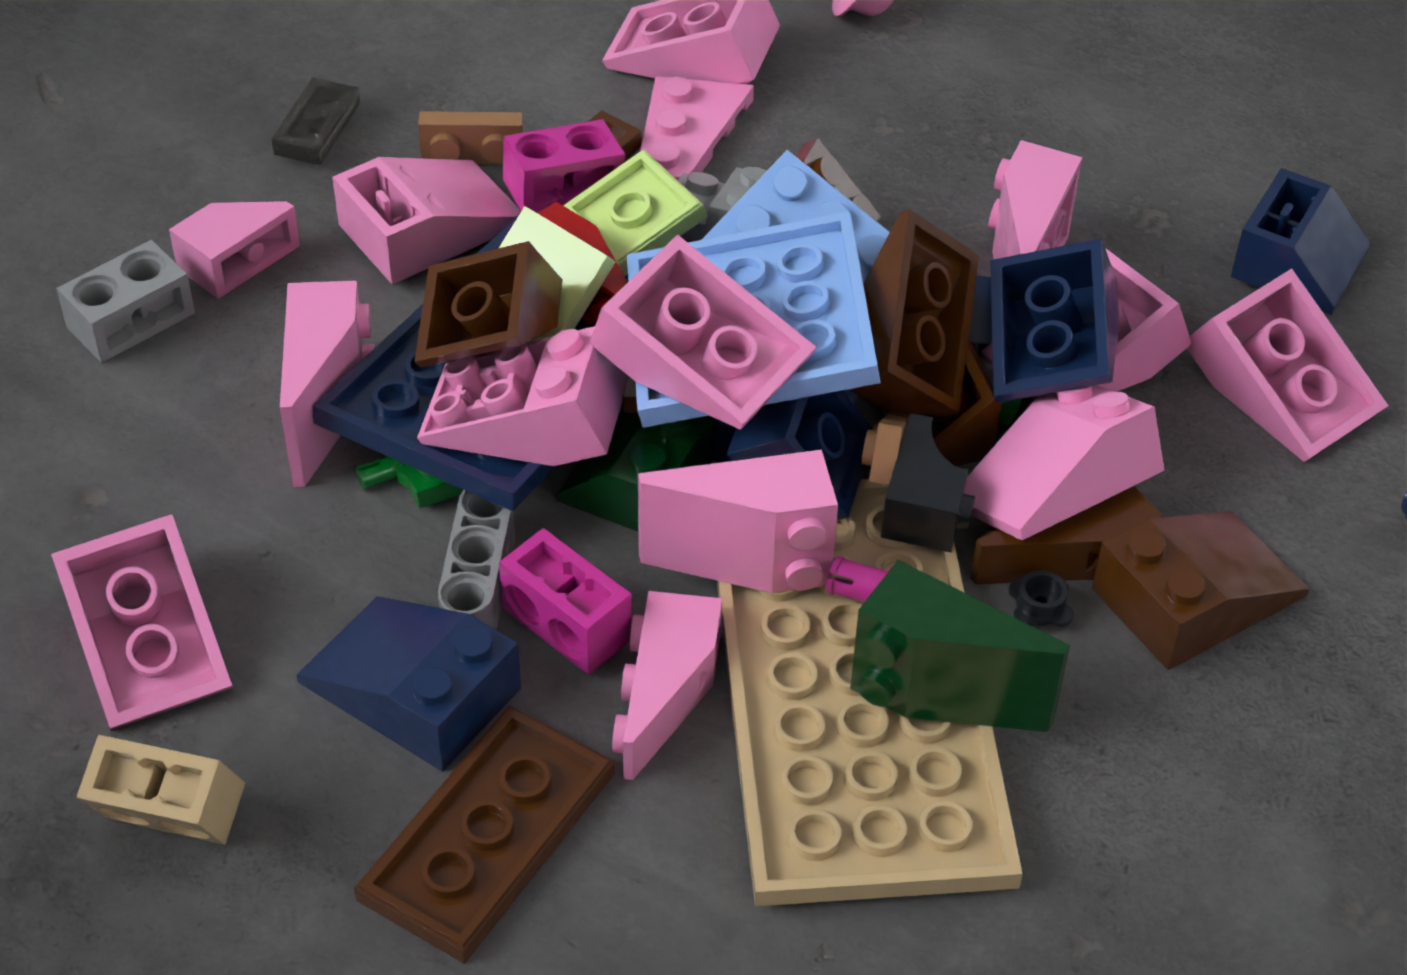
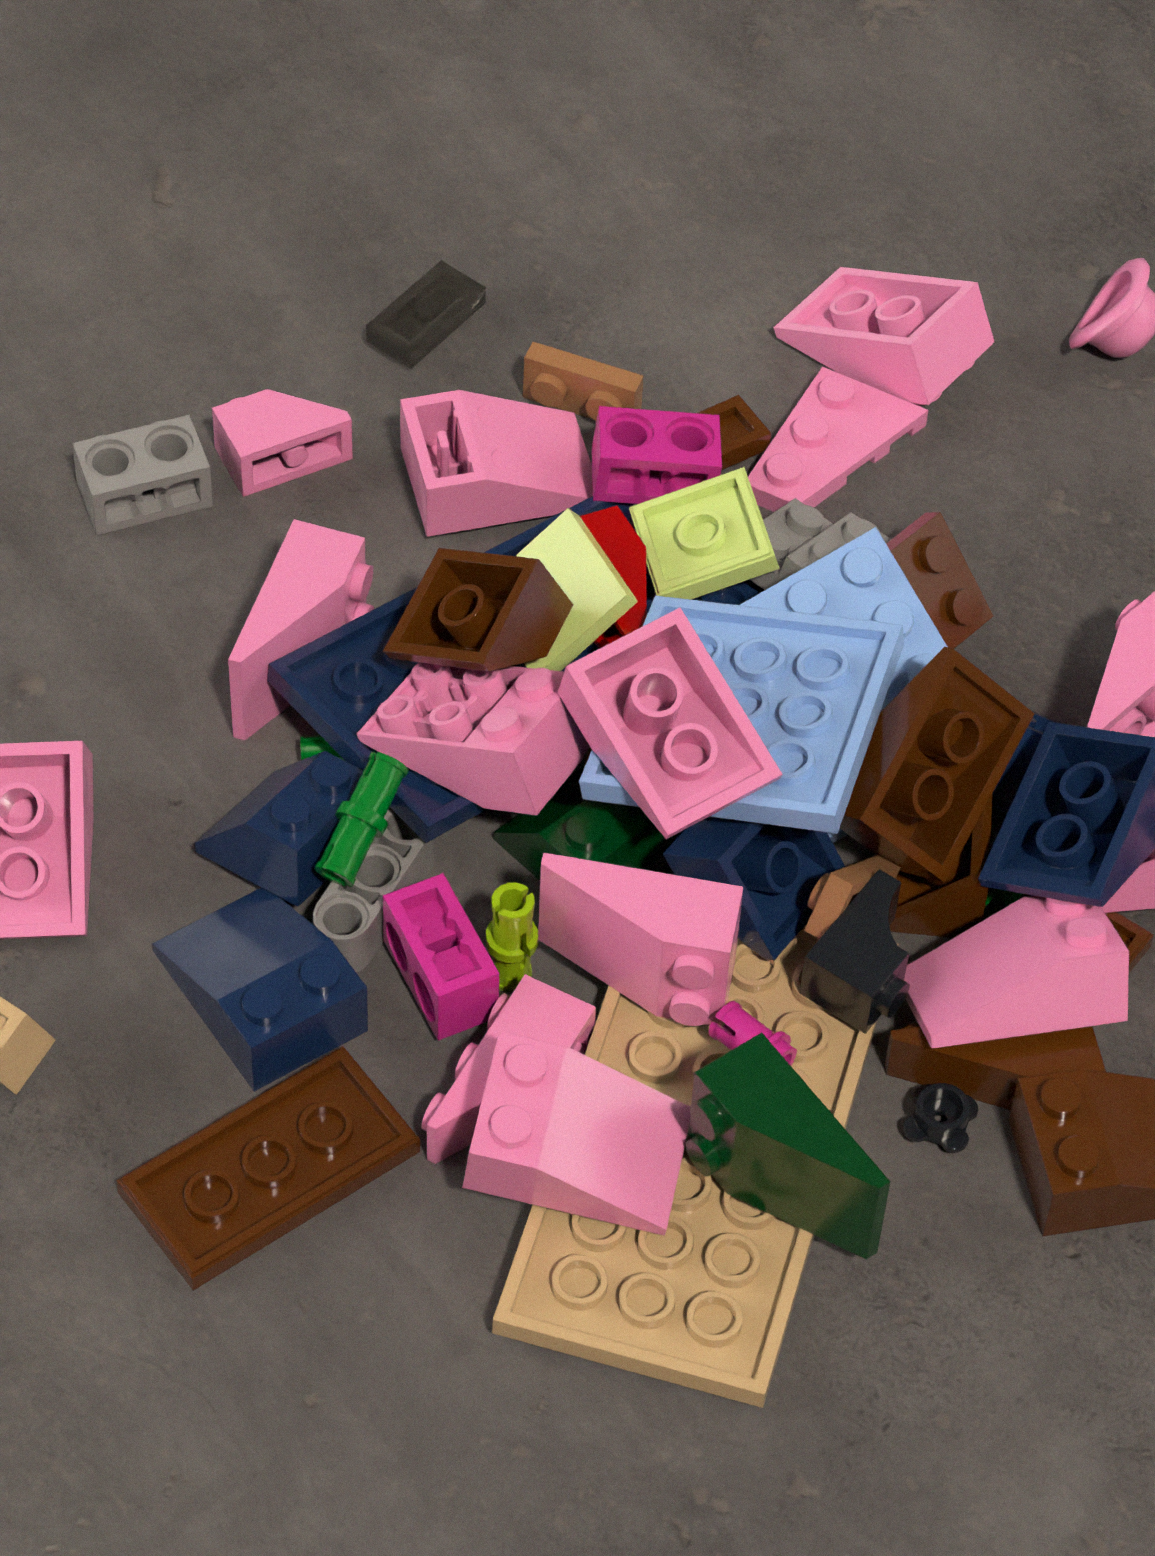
camera: 20 degrees right, 5 degrees up
(387, 535) = (284, 826): none -> dark blue slope
(453, 504) = (361, 819): none -> green pin
(623, 555) = (512, 934): none -> lime pin
(757, 708) = (576, 1136): none -> bright pink slope

